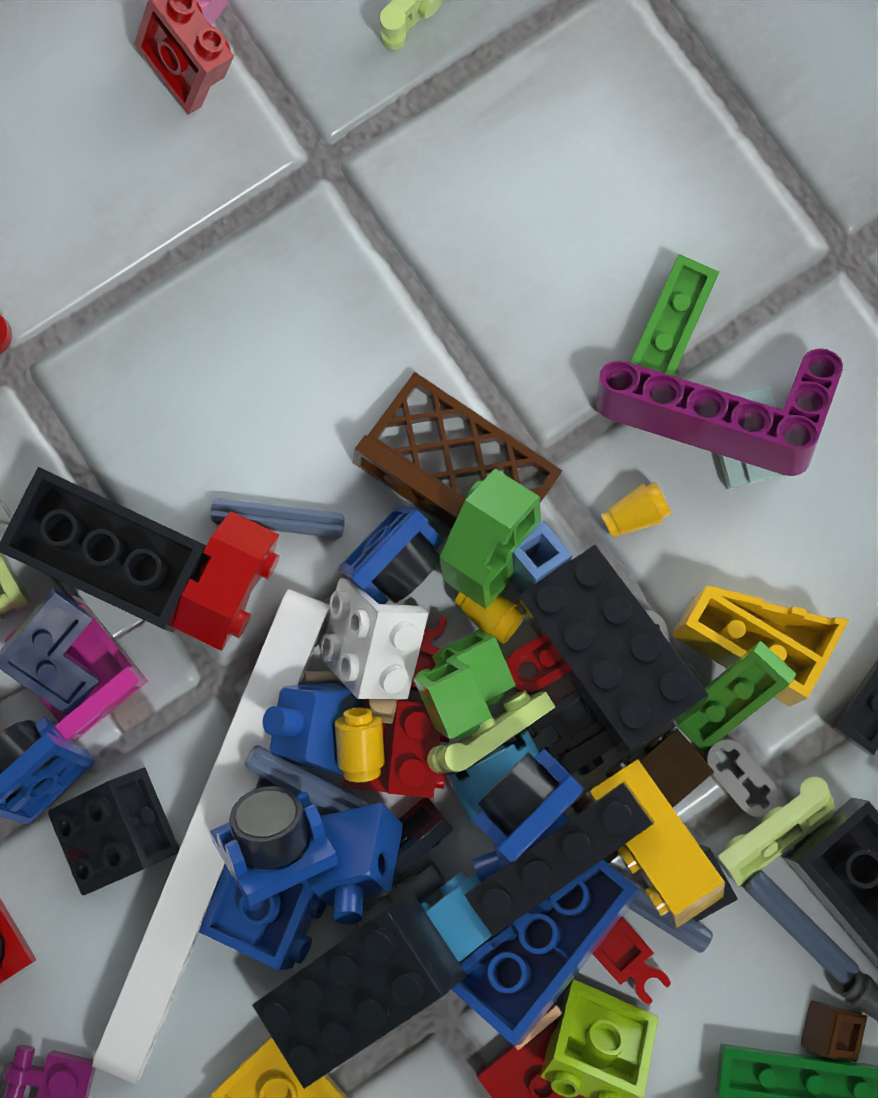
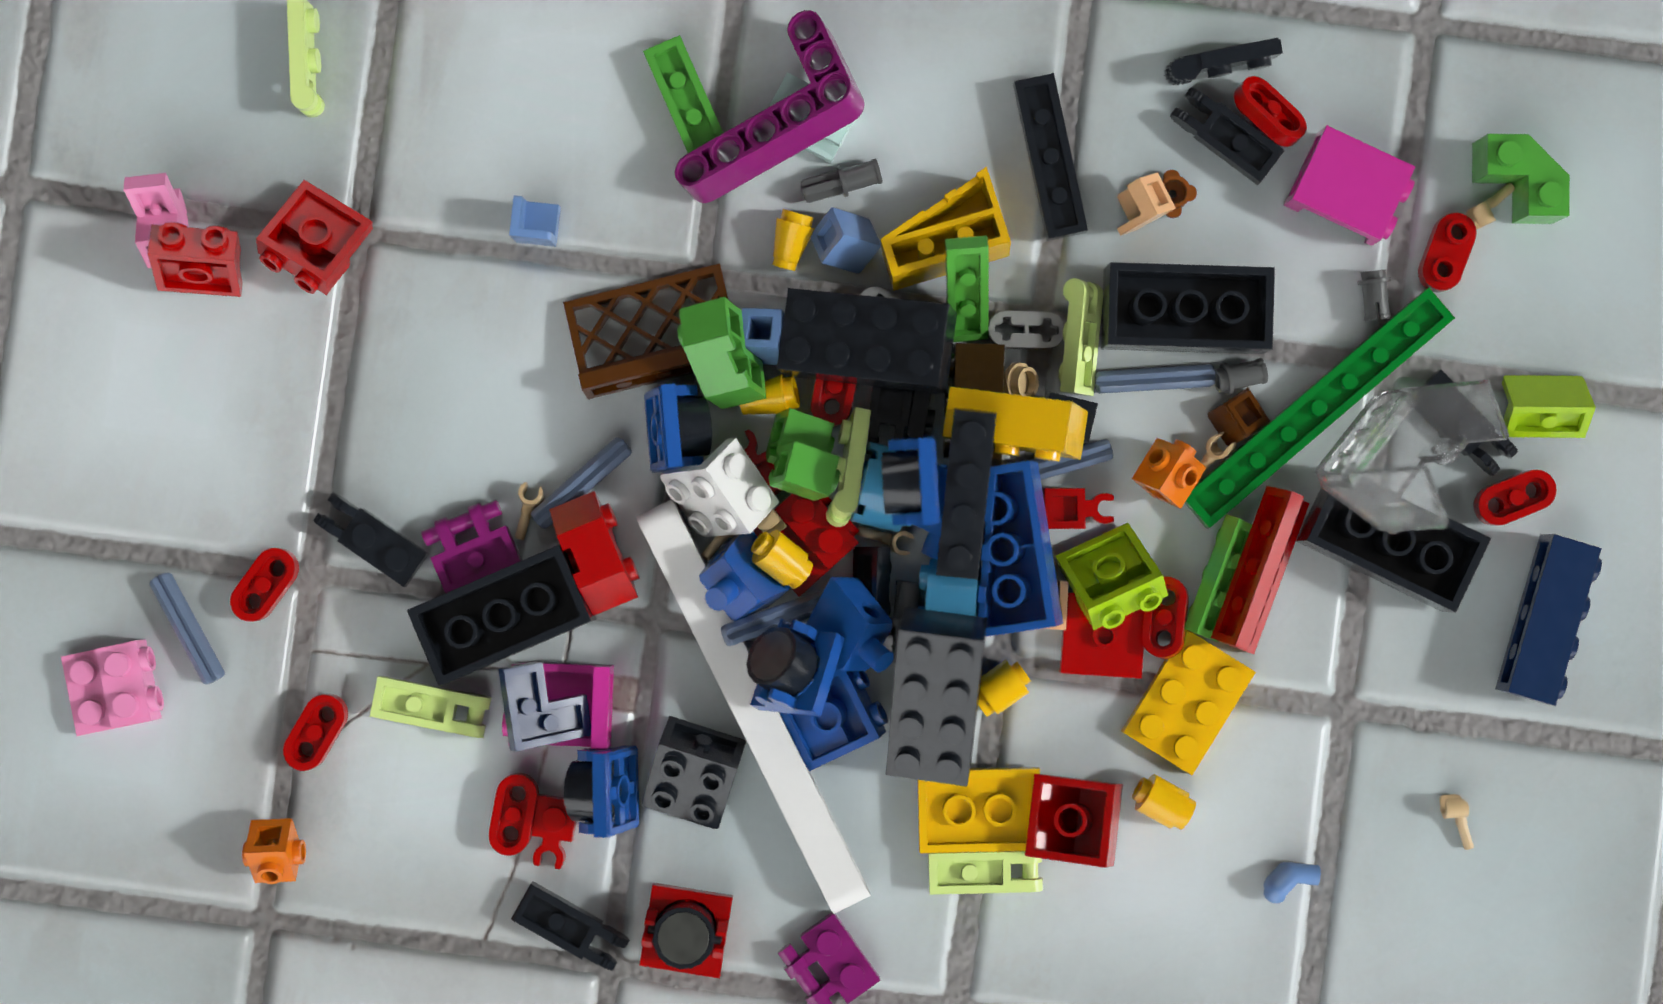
camera: 50 degrees left, 5 degrees up
(79, 392) = (374, 541): none -> black hinge
(138, 487) = (476, 557): none -> magenta plate
(216, 493) = (527, 507): none -> tan hand
(285, 127) = (312, 238): none -> red plate
(420, 1038) = (1002, 687): none -> yellow brick
(457, 816) = (885, 537): none -> tan hand
(458, 290) = (534, 222): none -> medium blue panel
(676, 557) = (845, 240): none -> medium blue panel
(696, 812) = (1021, 380): none -> tan plate
(722, 510) = (841, 181): none -> dark grey axle
(735, 1016) = (1169, 471): none -> orange brick
(778, 1038) = (1214, 452): none -> tan hand

